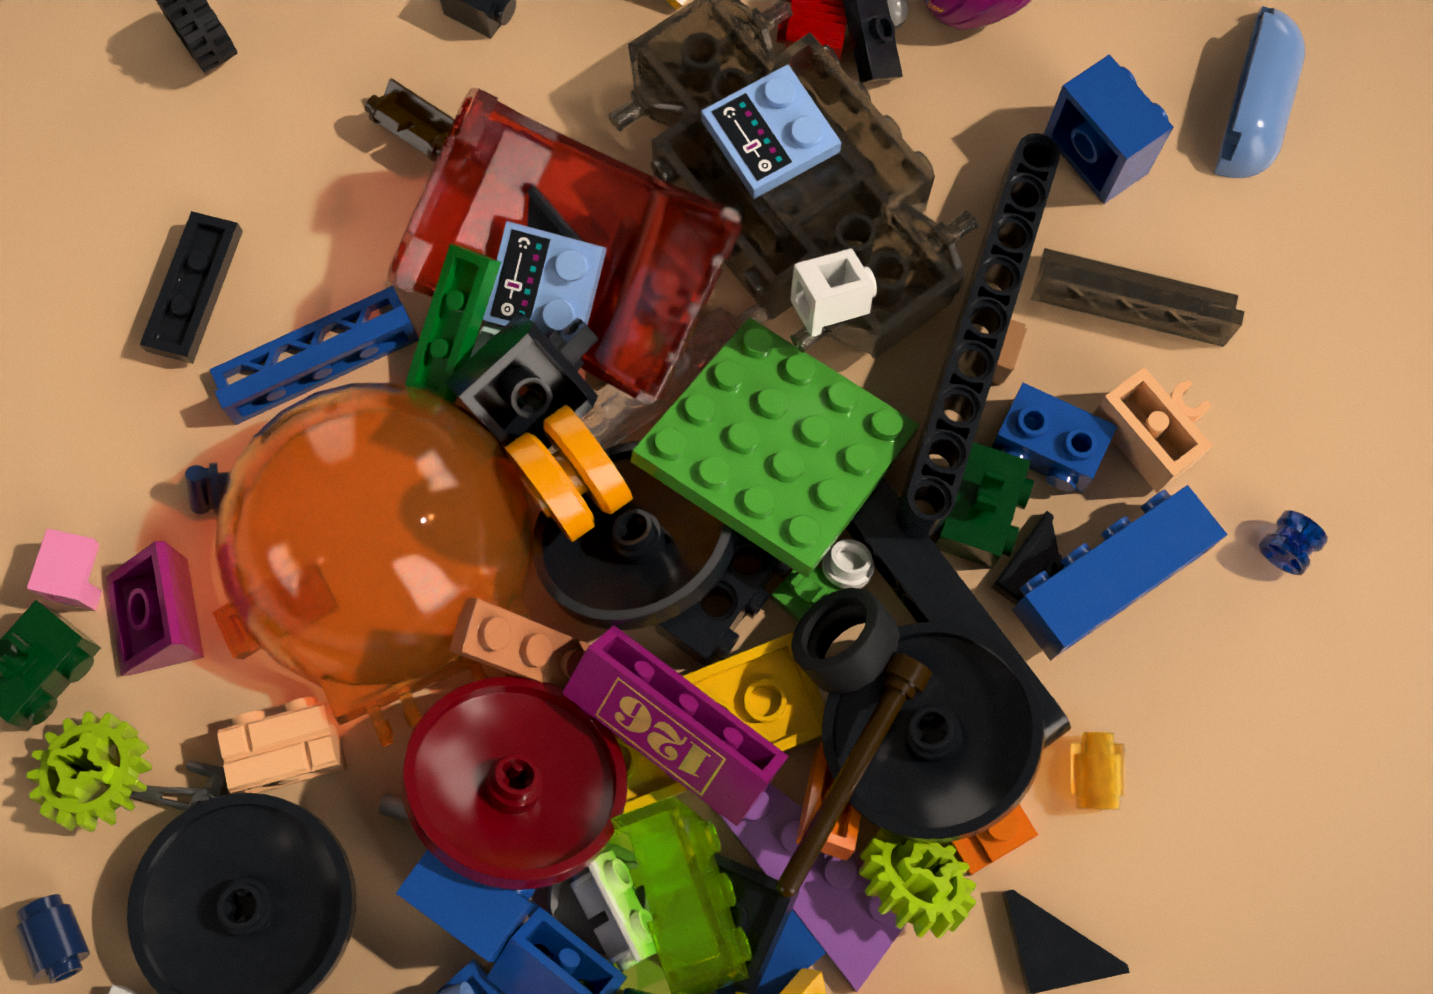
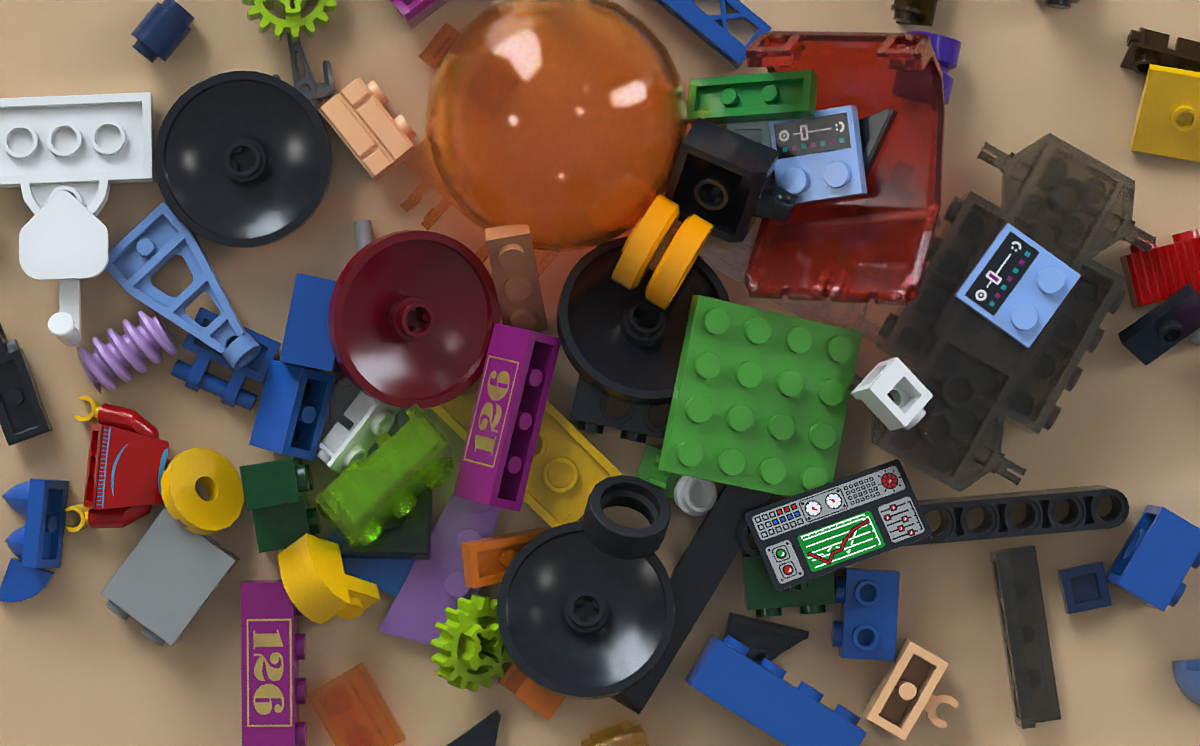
camera: 65 degrees right, 15 degrees up
(903, 680) = (610, 574): dark brown piece -> none
(949, 413) = (837, 524): none -> sticker
(1009, 352) = (926, 551): medium nougat tile -> none
(1108, 218) = (1084, 587): none -> dark blue plate

